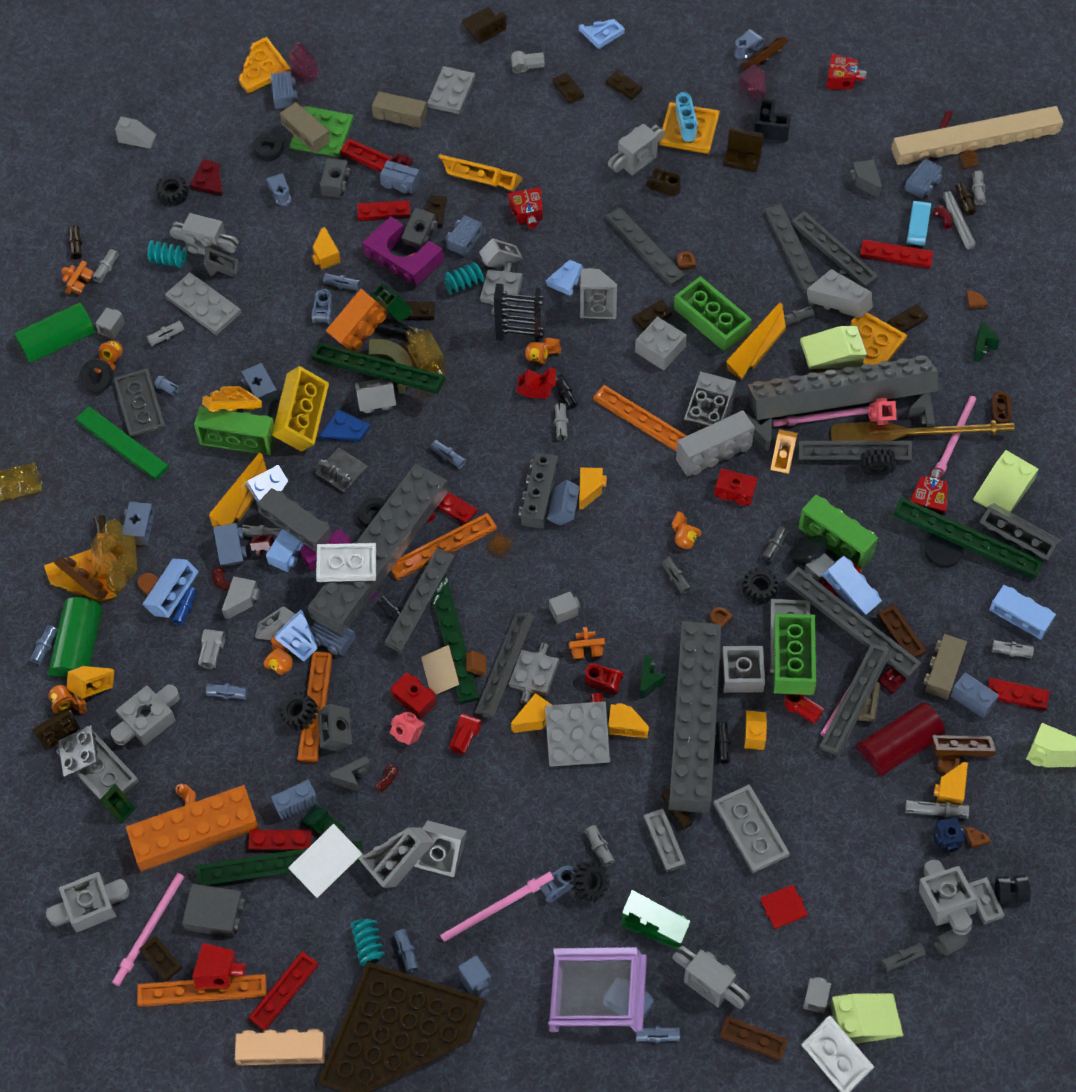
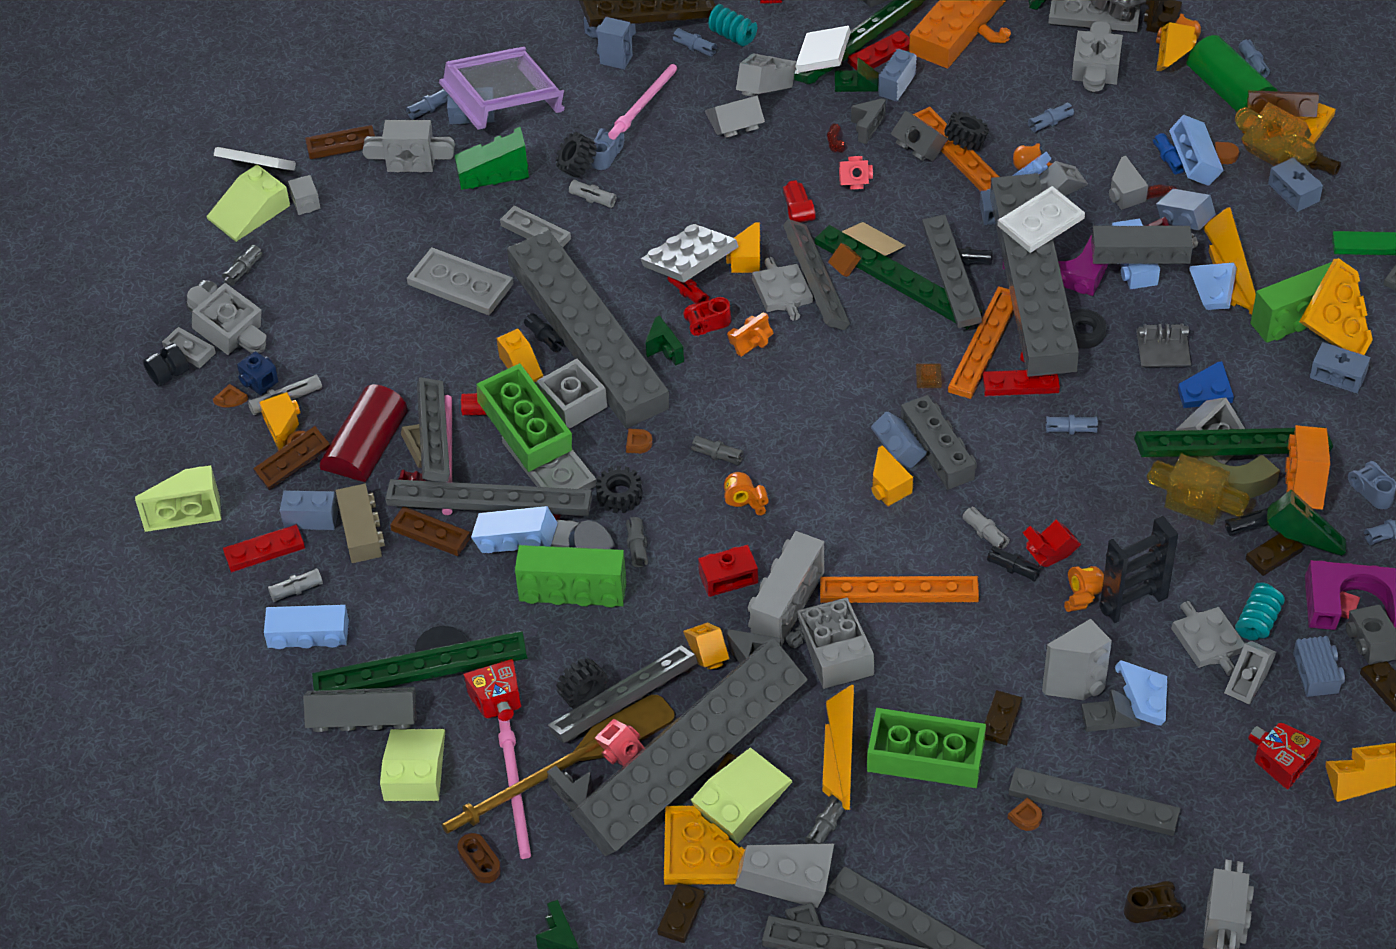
camera: 145 degrees right, 10 degrees down
(211, 644) = (1105, 138): light grey piece -> none
(300, 409) = (1264, 356): yellow brick -> none
(413, 695) = (876, 202): red brick -> none
(564, 607) = (805, 351): light grey brick -> none
(626, 722) = (651, 293): light orange slope -> none
(660, 343) = (956, 677): light grey brick -> none
(783, 906) = (384, 247): red piece -> none

